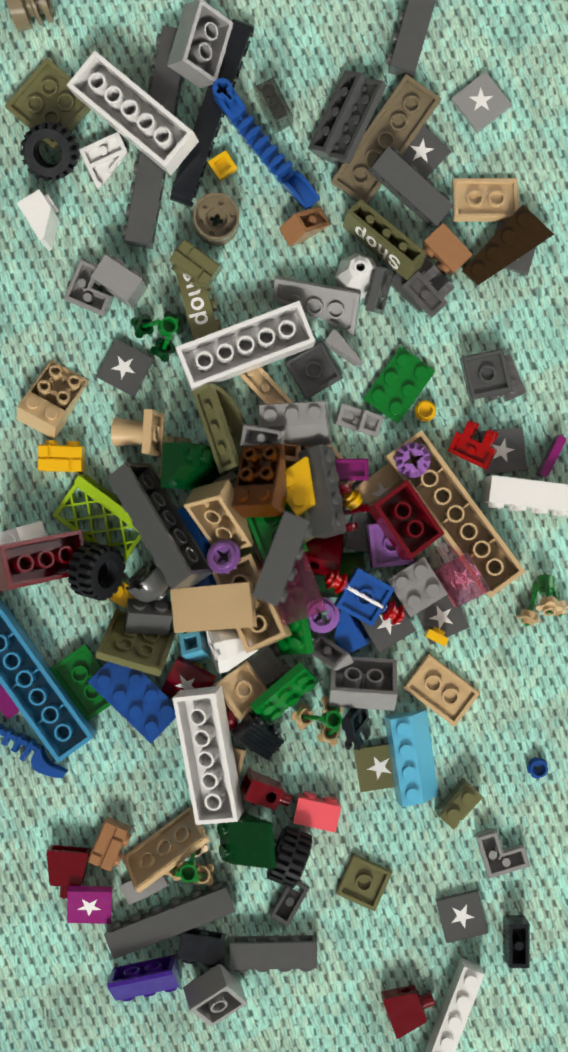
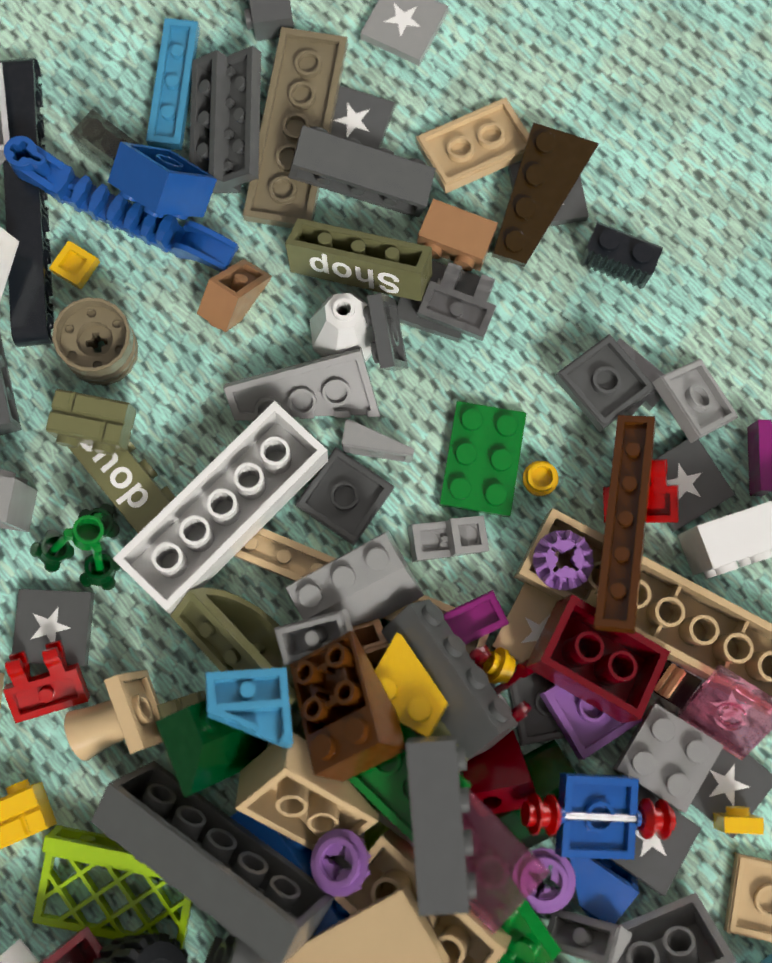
camera: 30 degrees left, 10 degrees down
(108, 401) = (46, 692): none -> red plate
(216, 455) = (252, 702): none -> dark azure wing
(294, 141) = (161, 181): none -> blue brick
(327, 79) = (173, 84): none -> dark azure plate
(440, 552) = (676, 685): none -> piece
(456, 455) = (625, 525): none -> reddish brown plate
(531, 407) = (695, 400): none -> light grey tile
(533, 305) = (621, 255): none -> black brick

